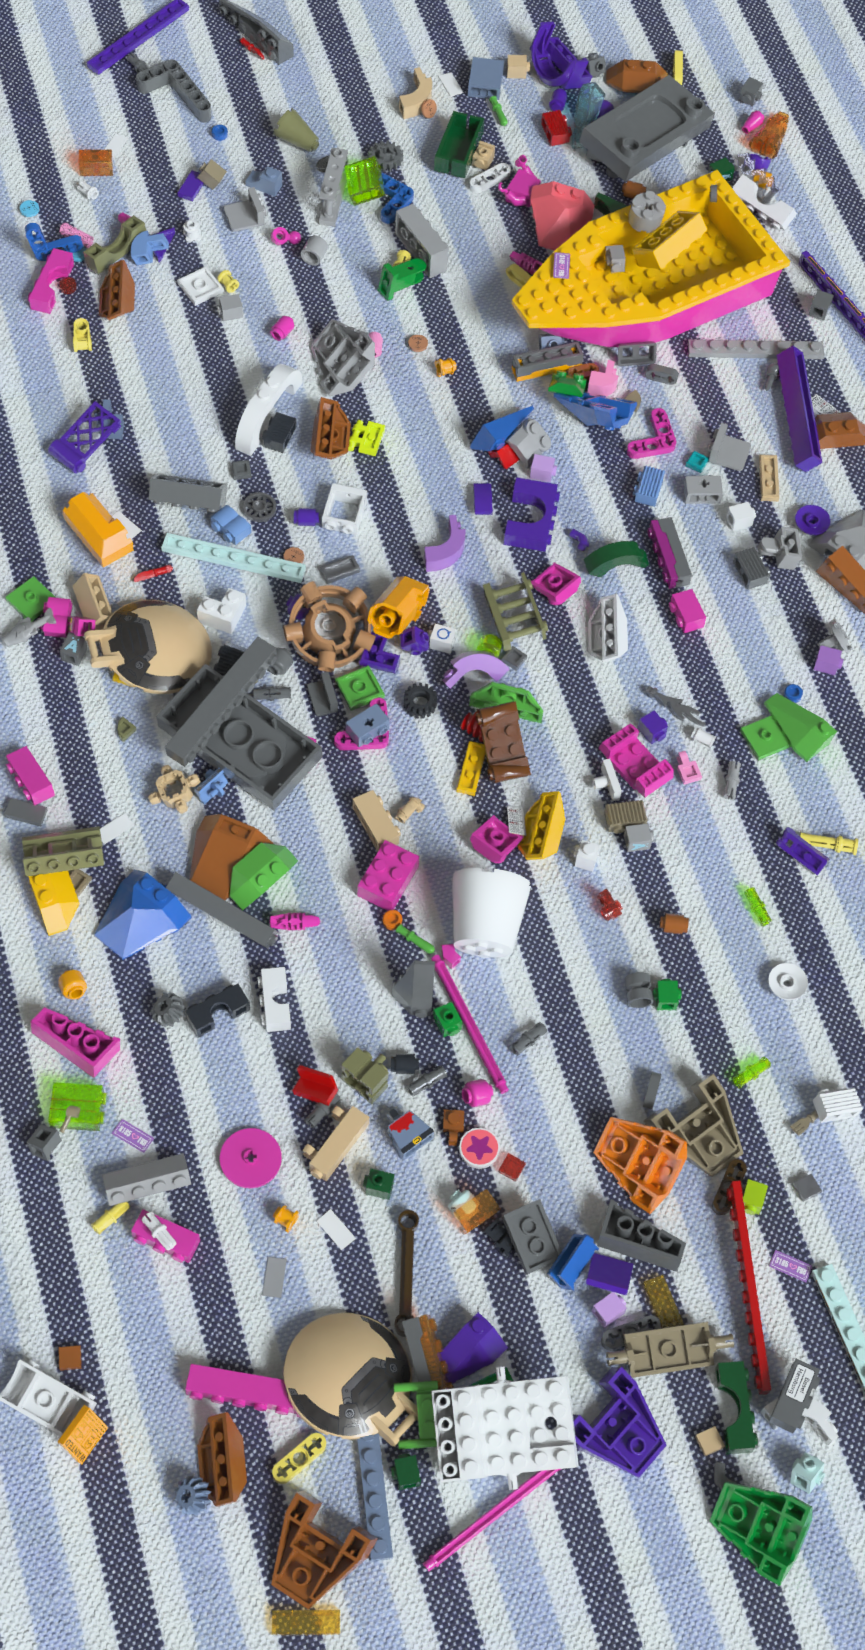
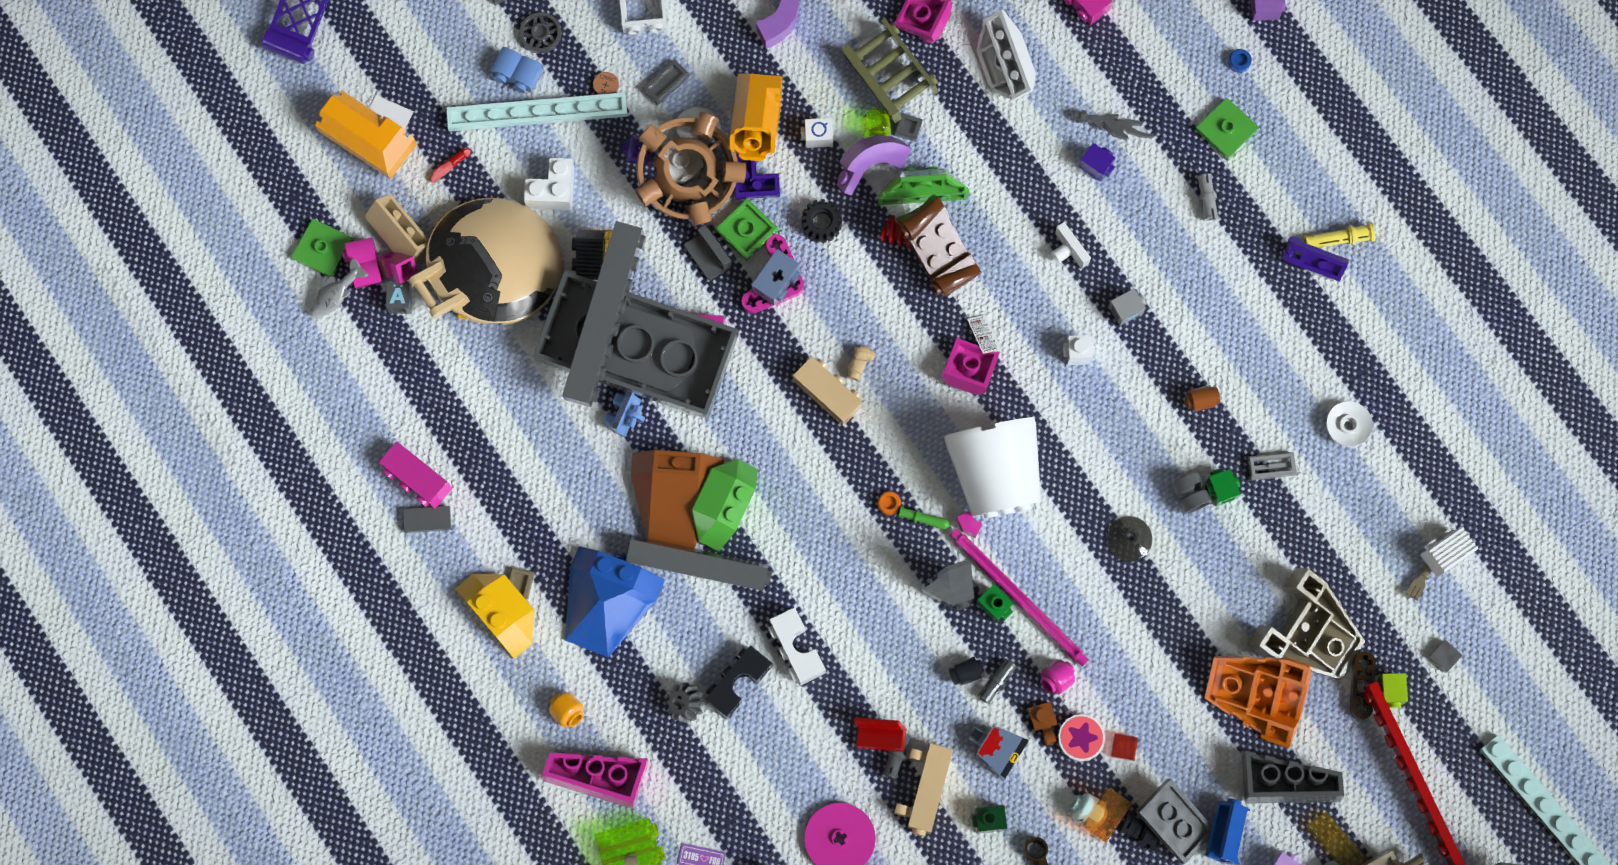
camera: 15 degrees left, 15 degrees up
(62, 851) = (486, 545): olive fence -> none
(115, 828) = (535, 502): white sticker -> none
(125, 729) = (498, 375): olive tile -> none
(178, 800) = (574, 421): tan piece -> none
(187, 492) = (452, 47): dark grey brick -> none
(283, 662) = (647, 222): dark grey head -> none
(285, 693) = (651, 270): dark grey pin -> none
(293, 921) = (783, 545): dark pink hinge -> none
(306, 517) = (601, 28): dark purple brick -> none
(365, 1075) = (931, 700): olive brick -> none
(388, 876) = (866, 454): dark pink piece -> none
(414, 640) = (790, 149): dark purple brick -> none
(471, 768) = (910, 285): yellow tile -> none
(528, 1038) = (1090, 592): dark grey pin -> none
(543, 827) = (1019, 335): yellow wedge -> none
(576, 1018) = (1129, 550): none -> clear smoke dish
(609, 1274) = (1271, 832): dark purple tile -> none
(610, 908) = (1126, 405): clear red plate -> none
(624, 814) = (1104, 285): dark tan brick -> none
(635, 762) = (1093, 212): dark pink plate -> none
(652, 1090) = (1244, 605): dark grey beam -> none
(687, 770) = (1155, 202): bright pink plate -> none
(703, 736) = (1157, 153): white pin -> none
(713, 1001) = (1253, 476): none -> light grey tile
(751, 1072) = (1344, 545): clear neon green pin -> none
(757, 906) = (1286, 343): clear neon green pin -> none
(790, 1266) = (1455, 750): medium lavender sticker -> none
(803, 728) = (1265, 103): bright green wedge -> none

